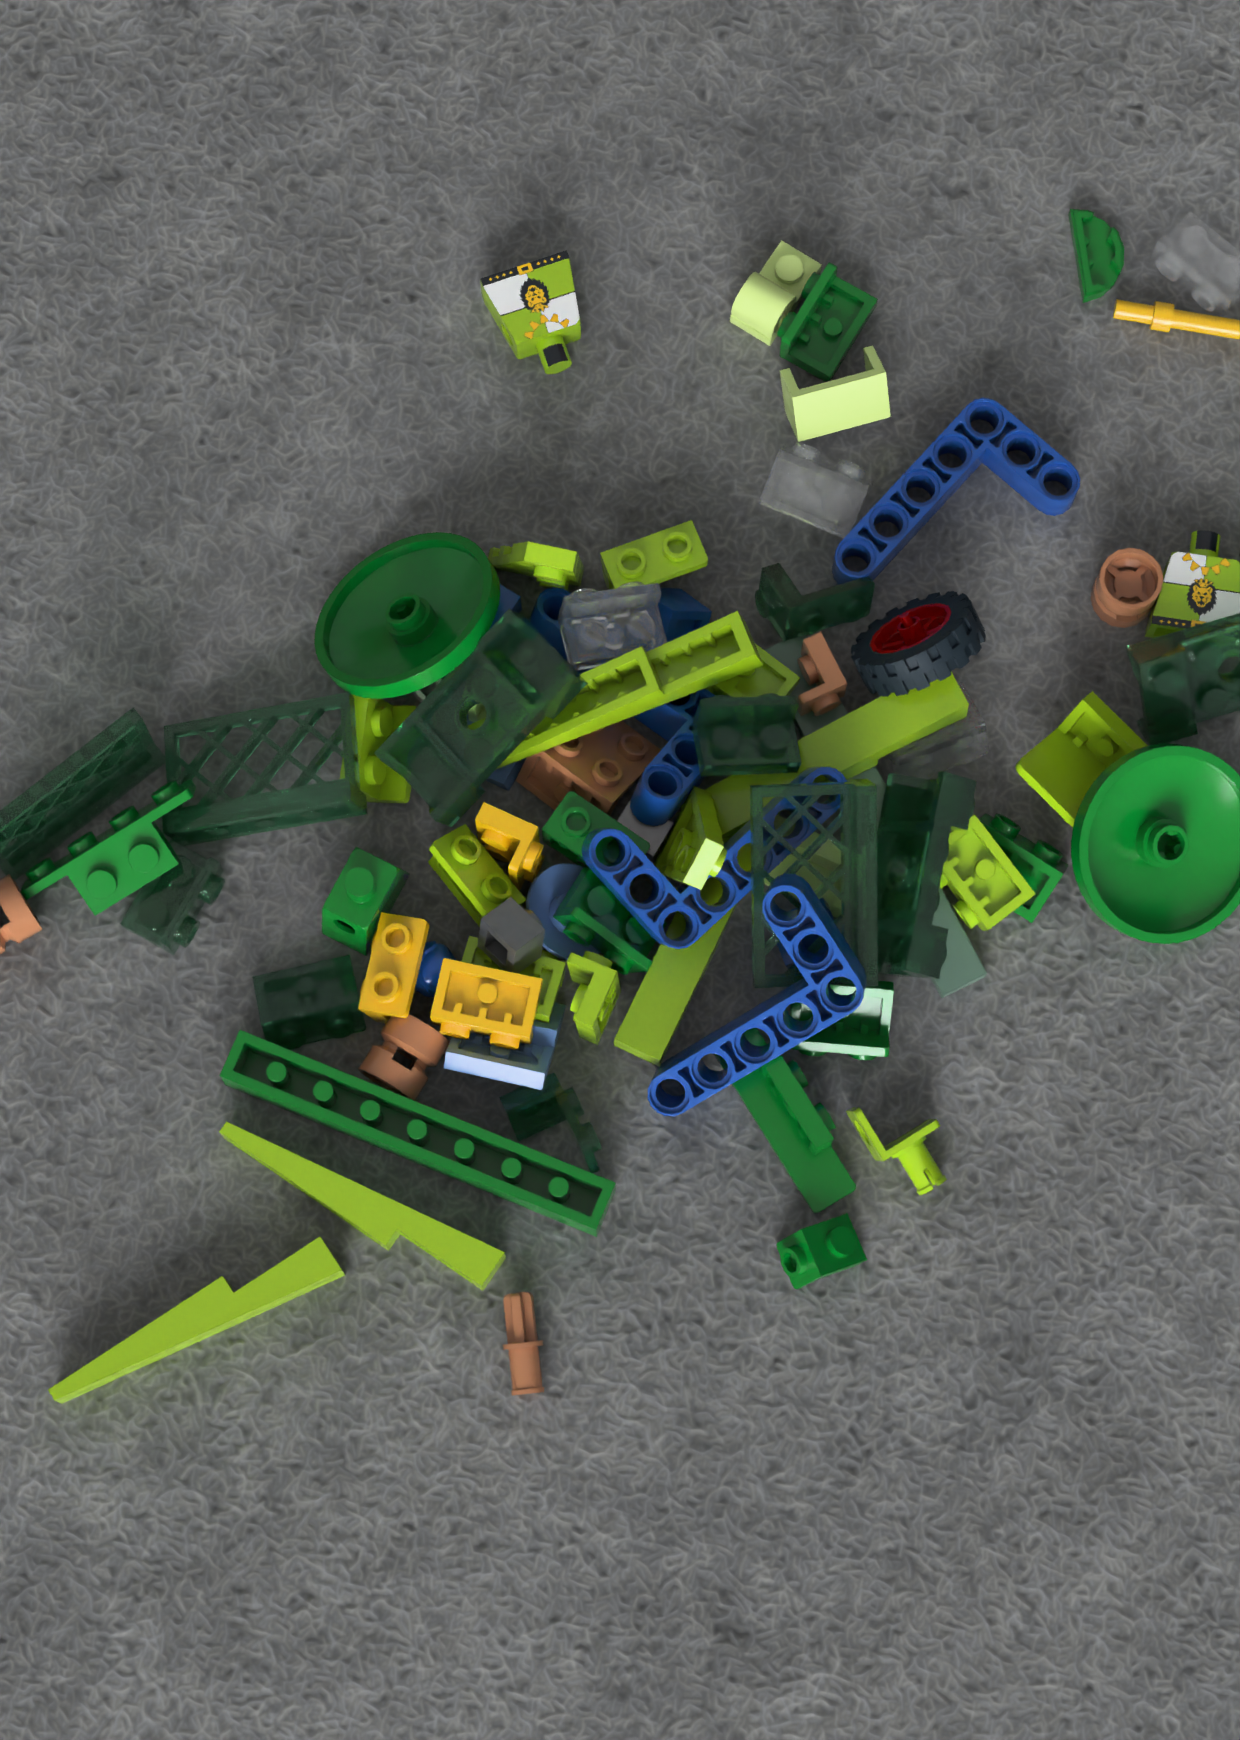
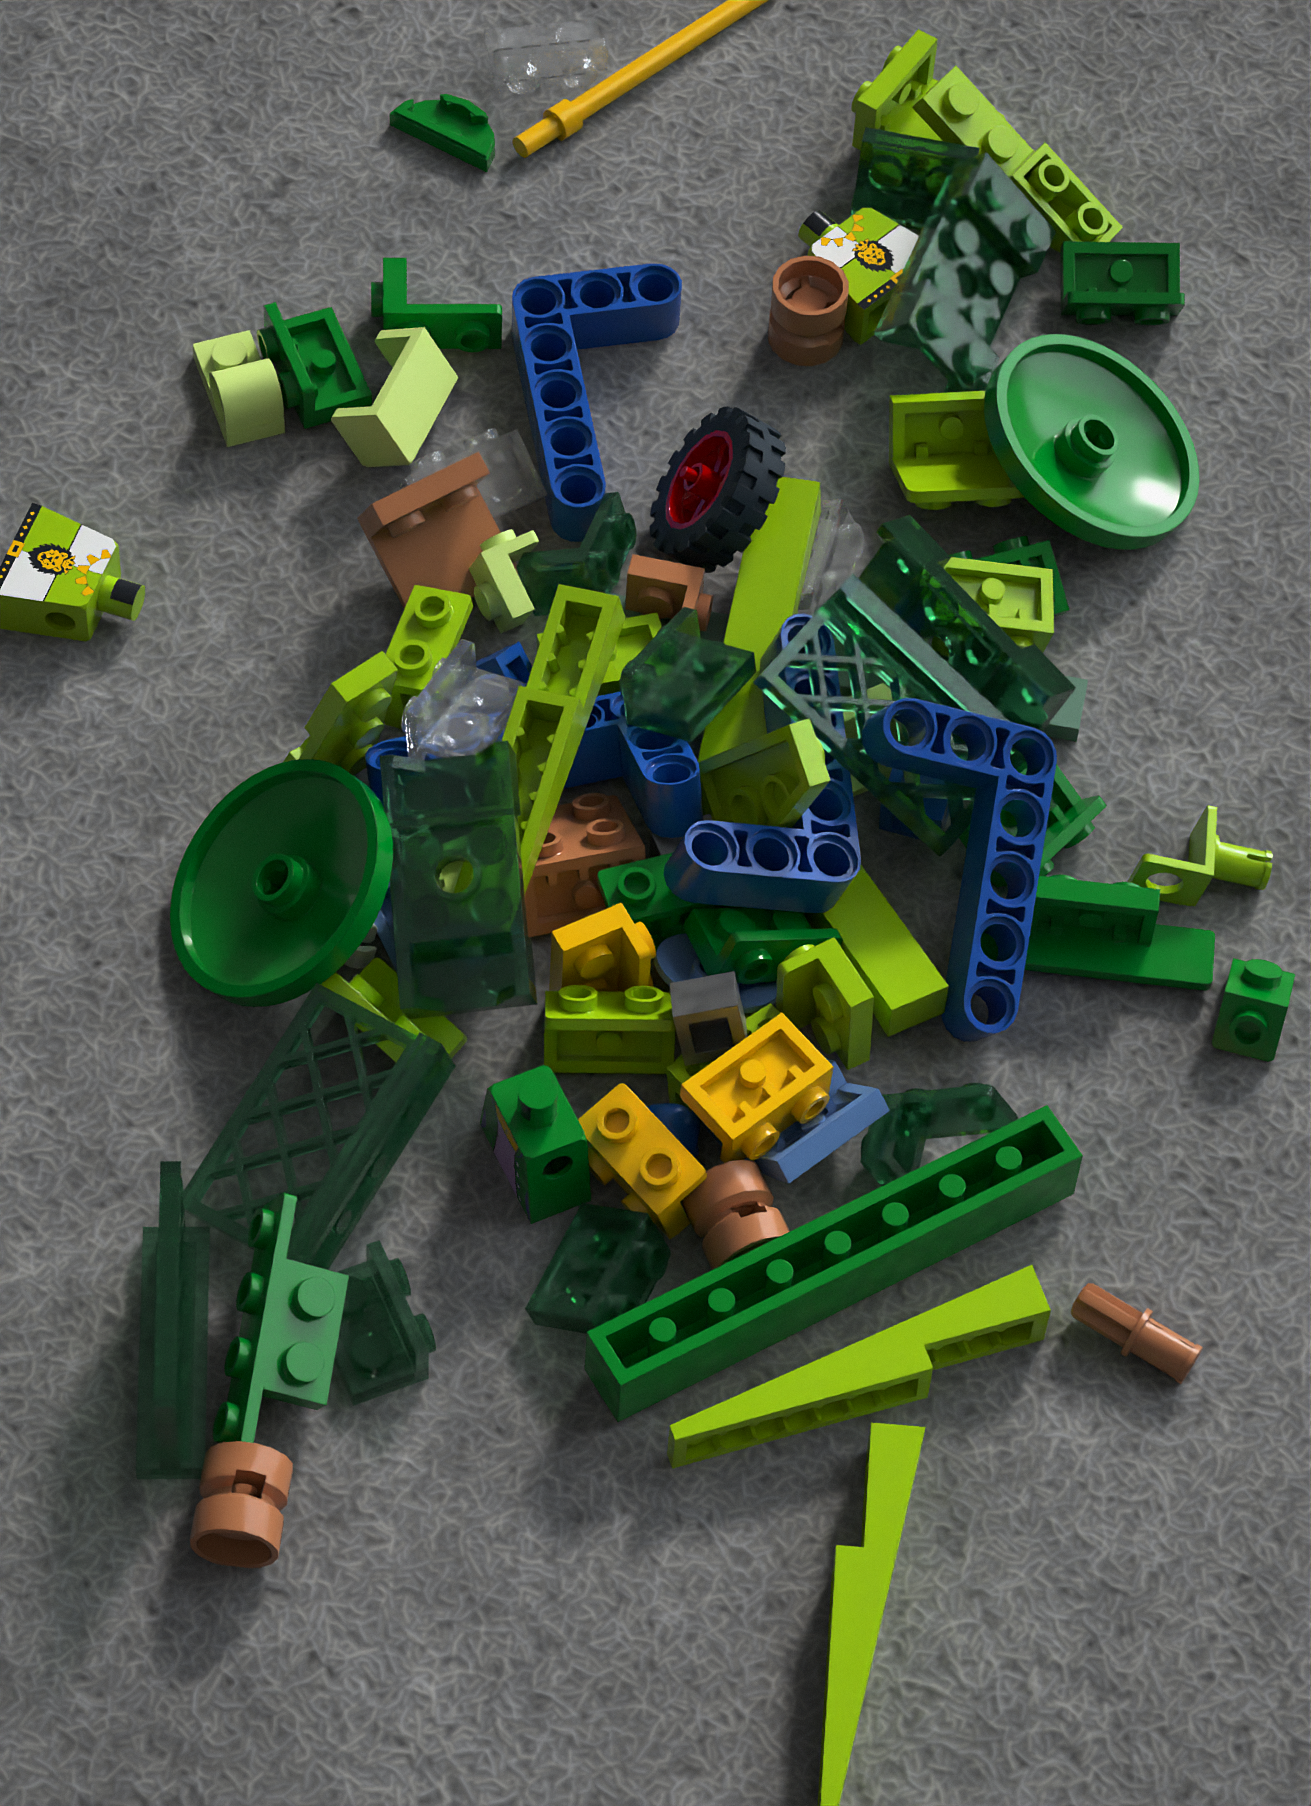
camera: 55 degrees left, 20 degrees down
(742, 569) = (498, 587): none -> yellowish green bracket
(748, 506) = (432, 529): none -> nougat bracket
(912, 333) = (449, 325): none -> green bracket

